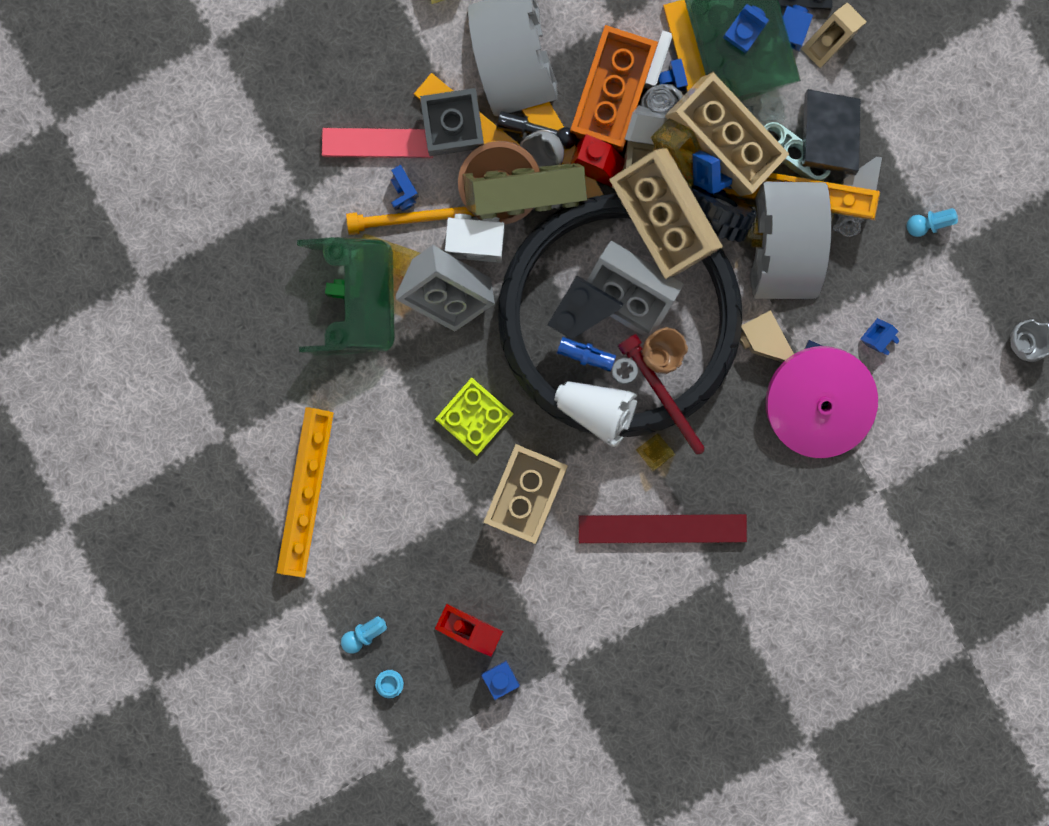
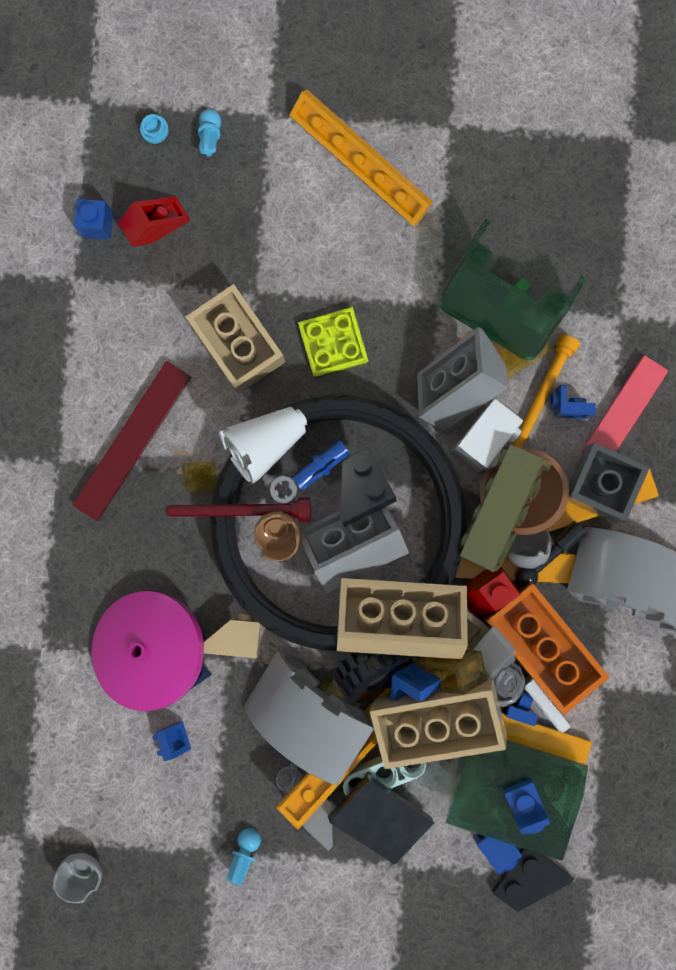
camera: 125 degrees right, 0 degrees up
(833, 34) = (468, 879): tan slope -> none

